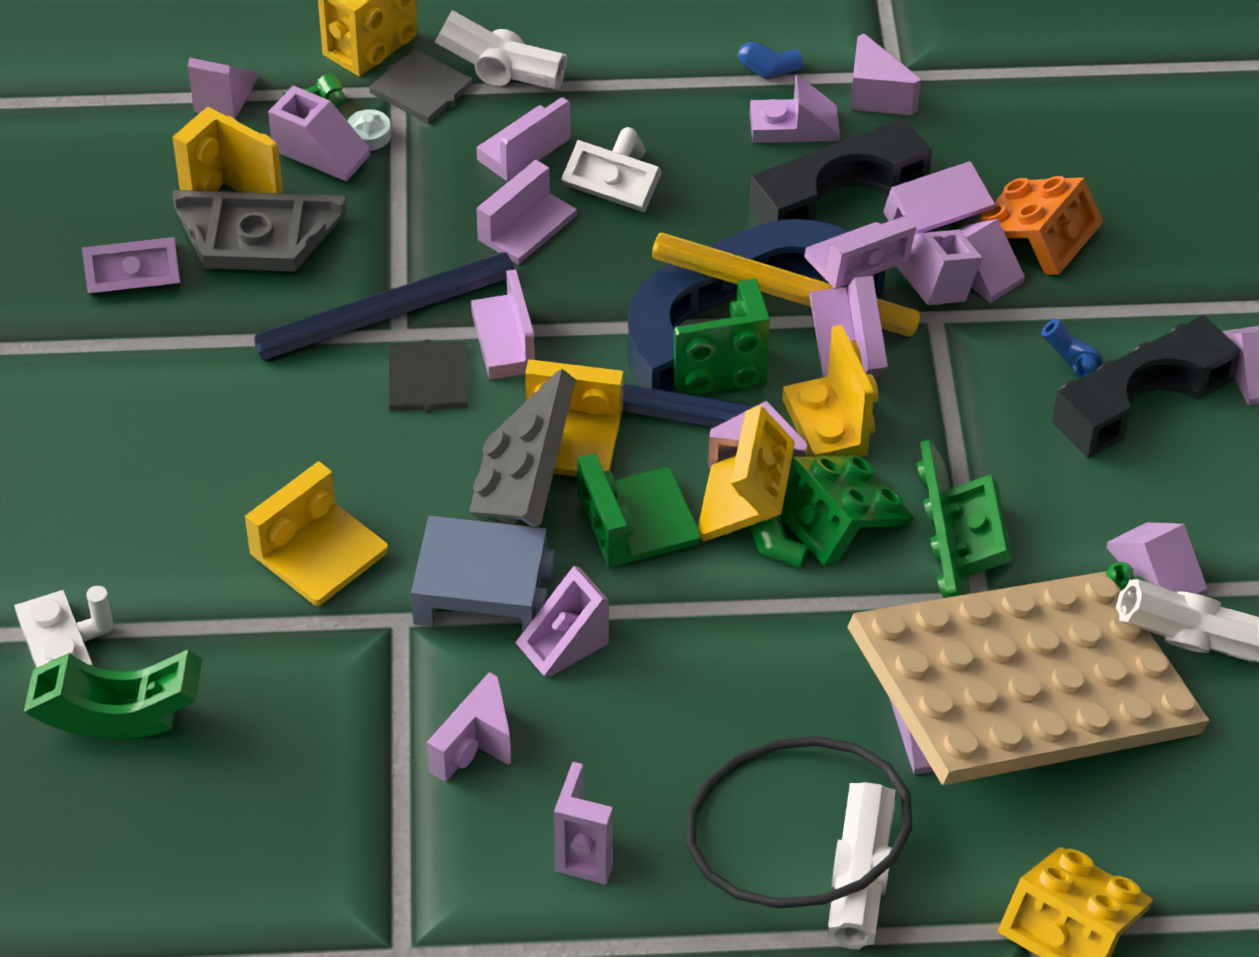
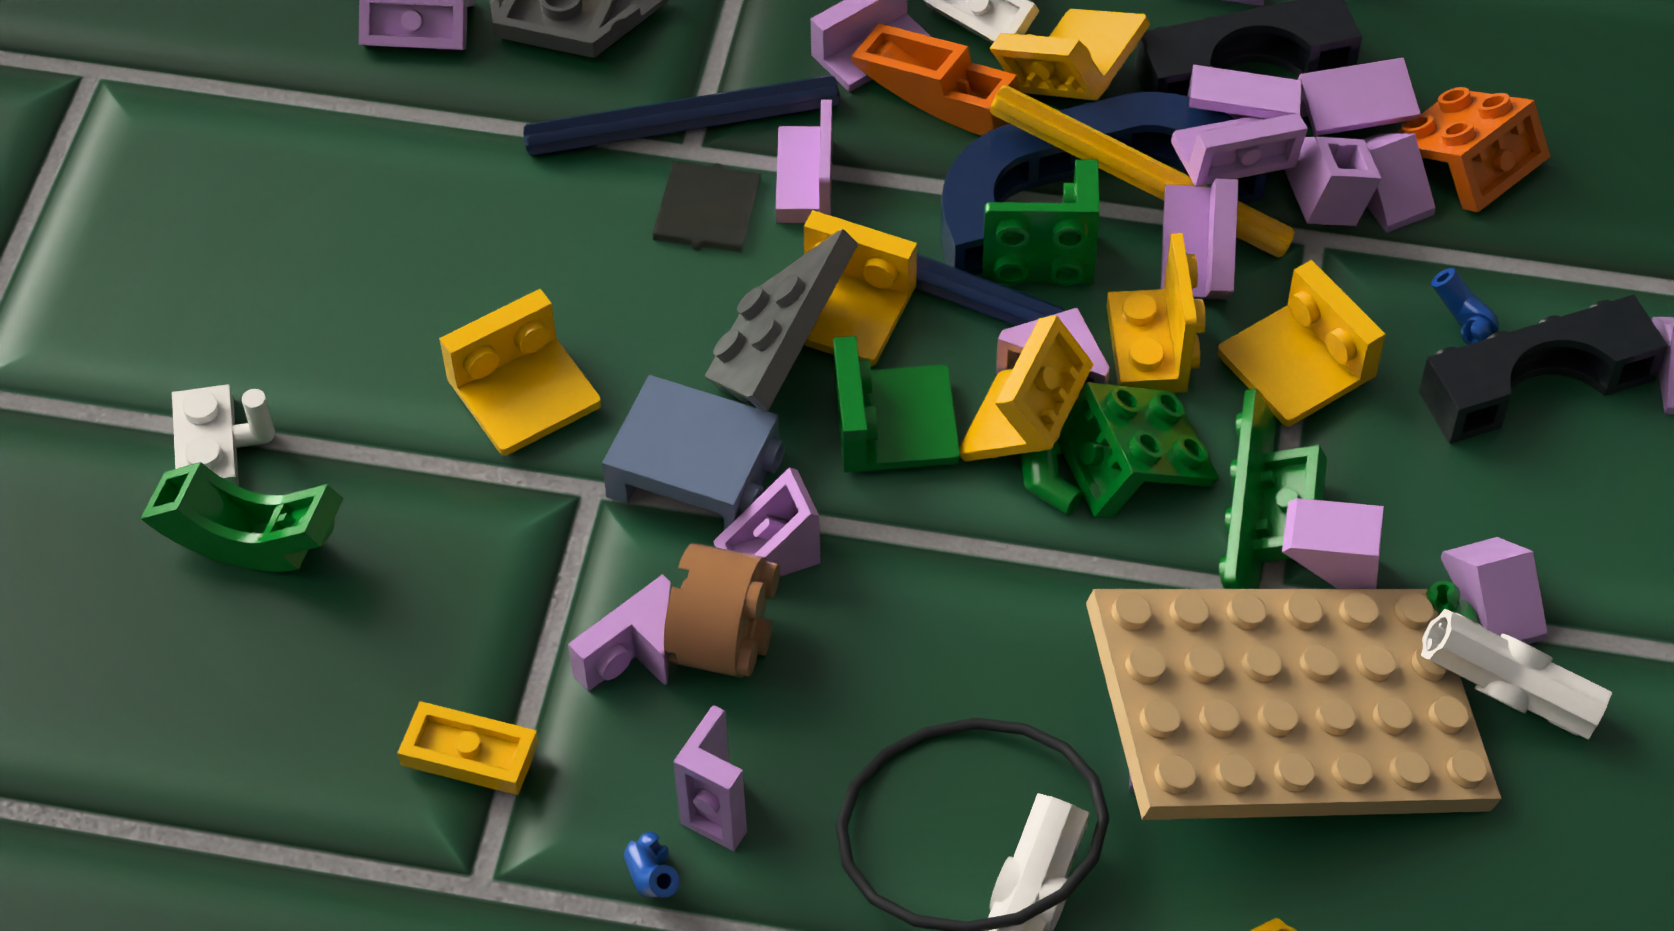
camera: 15 degrees right, 5 degrees up
(362, 844) = (468, 748): none -> yellow plate
(544, 692) = (720, 611): none -> medium nougat brick
(545, 916) = (642, 863): none -> blue arm
(592, 240) = (934, 76): none -> orange slope
(704, 202) = (1076, 57): none -> yellow bracket
(850, 209) = (1243, 93): none -> lavender panel
(958, 402) = (1307, 349): none -> yellow bracket
(1029, 544) = (1335, 541): none -> lavender slope

